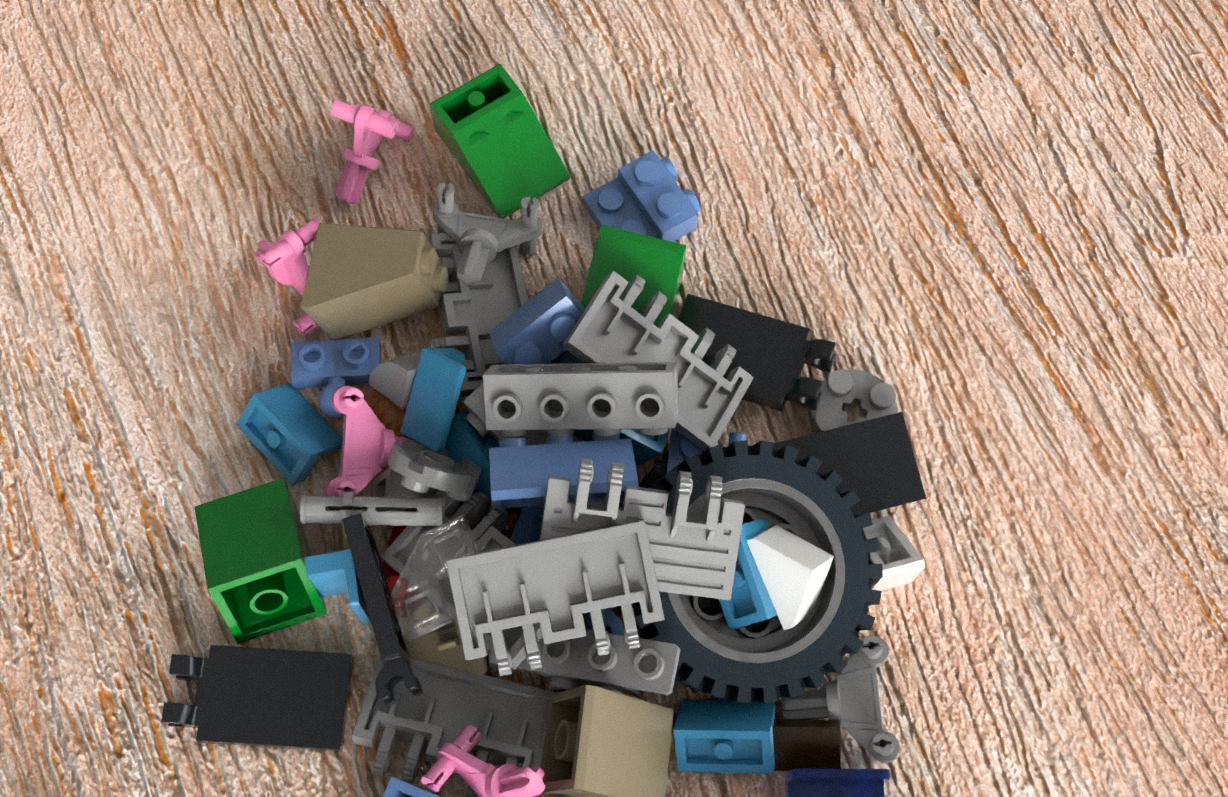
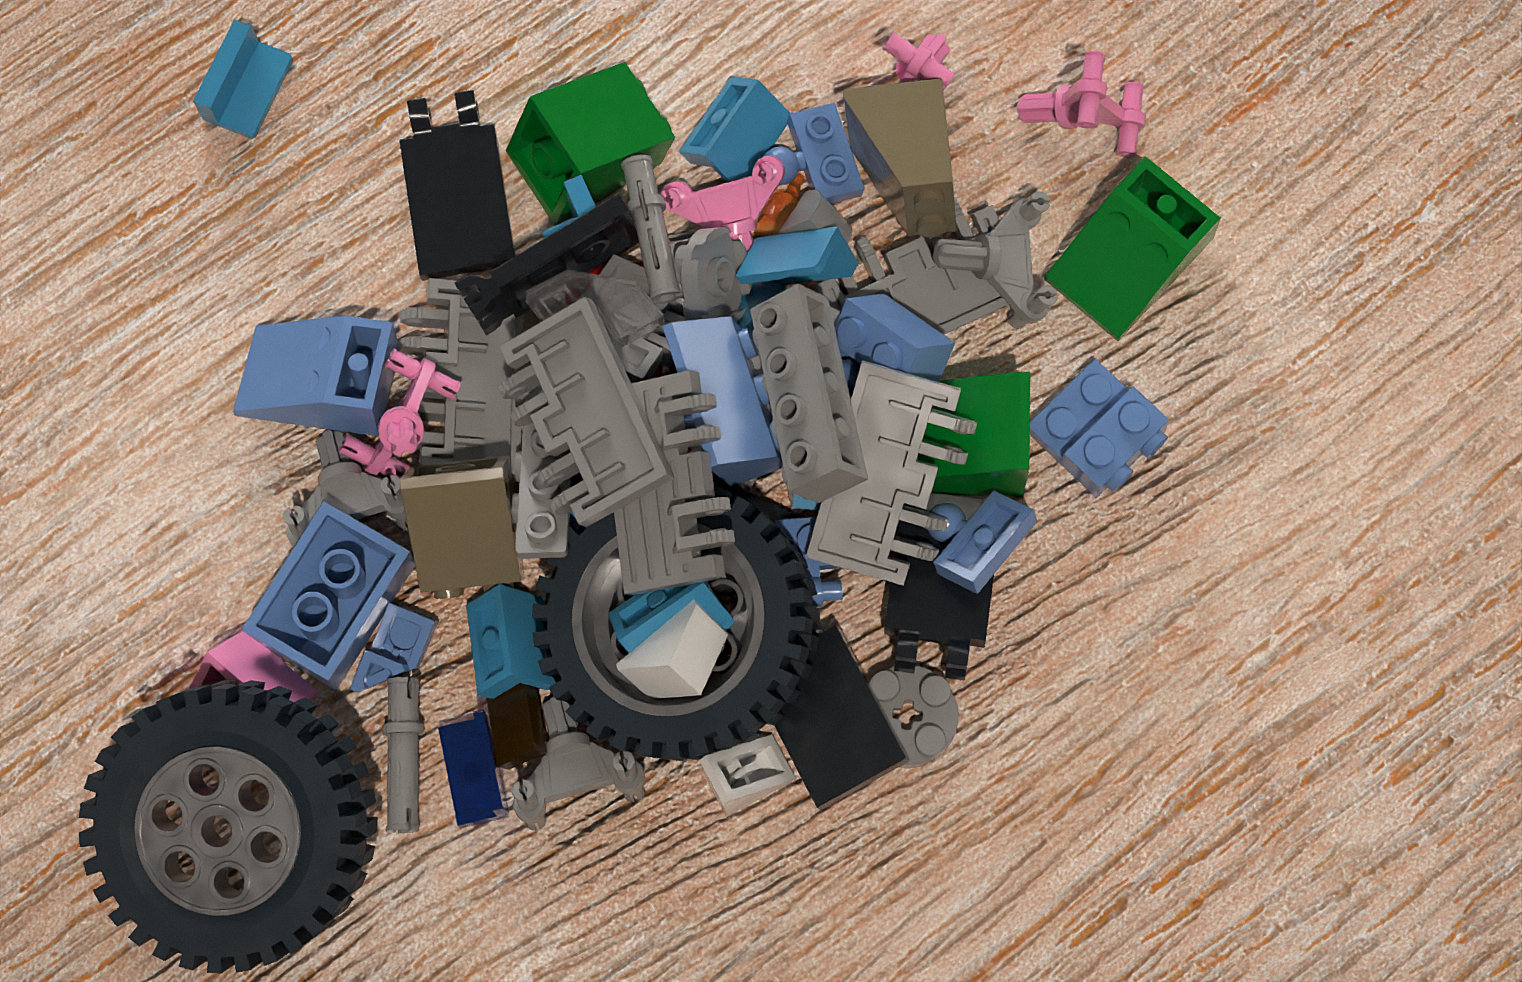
camera: 85 degrees right, 5 degrees up
(726, 308) = (983, 542): none -> medium blue plate

